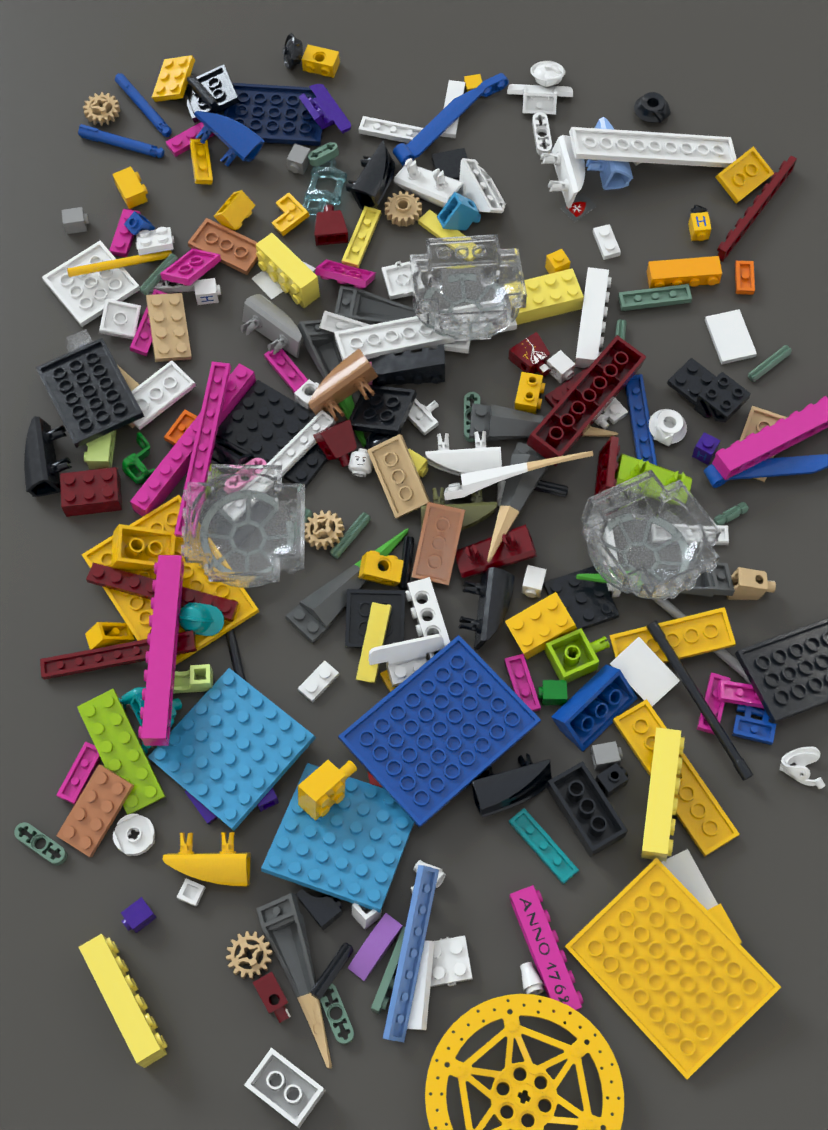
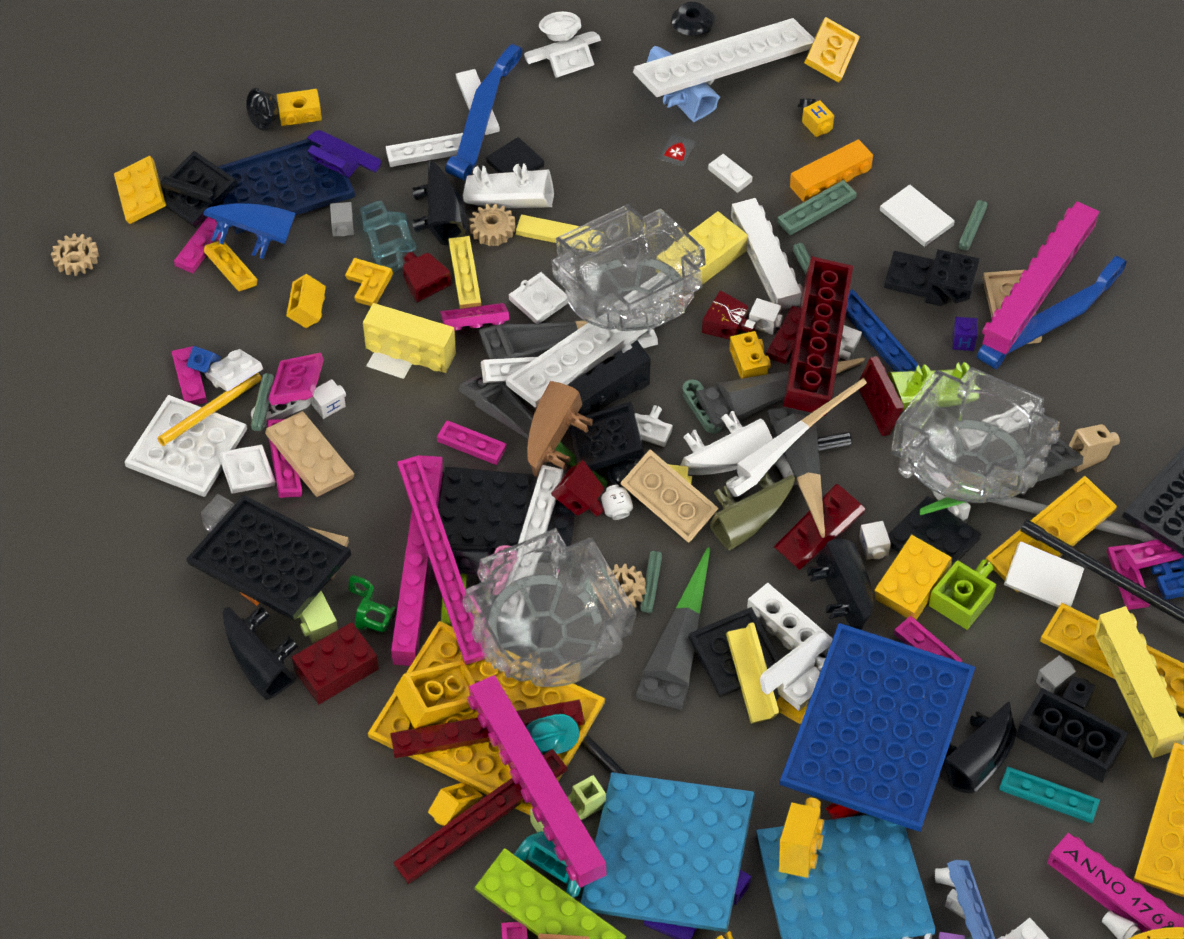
camera: 30 degrees left, 10 degrees down
(75, 220) = (123, 386): light grey brick -> none
(119, 141) = (86, 285): blue piece -> none
(130, 187) = (167, 324): yellow brick -> none
(143, 105) = (120, 231): blue piece -> none
(161, 392) = (349, 520): white tile -> none
(179, 427) = (393, 553): orange plate -> none
(235, 249) = (334, 341): nougat plate -> none
(271, 322) = (429, 402): light grey piece -> none
(301, 394) = (514, 449): white brick -> none
(318, 681) = (713, 744): white plate -> none
(323, 154) = (368, 202): sand green beam -> none
(370, 571) = (710, 598): yellow brick -> none
(407, 555) = (729, 582): black axle -> none
(438, 543) = (756, 543): nougat plate -> none
(458, 213) = (559, 204): dark azure torso -> none
(472, 81) = (483, 66): yellow tile -> none
(480, 187) = (565, 174): white wedge -> none
(544, 128) = (591, 83): white beam -> none
(553, 692) = (965, 639): green brick -> none
(557, 262) = (695, 213): yellow brick -> none
(568, 169) = (646, 113): white piece -> none
(594, 706) = (1014, 634): blue slope -> none
(667, 426) = (911, 329): white piece -> none
(731, 514) = (1032, 381): sand green axle -> none
(744, 277) = (895, 151): orange plate -> none
(758, 205) = (863, 71): dark red plate -> none

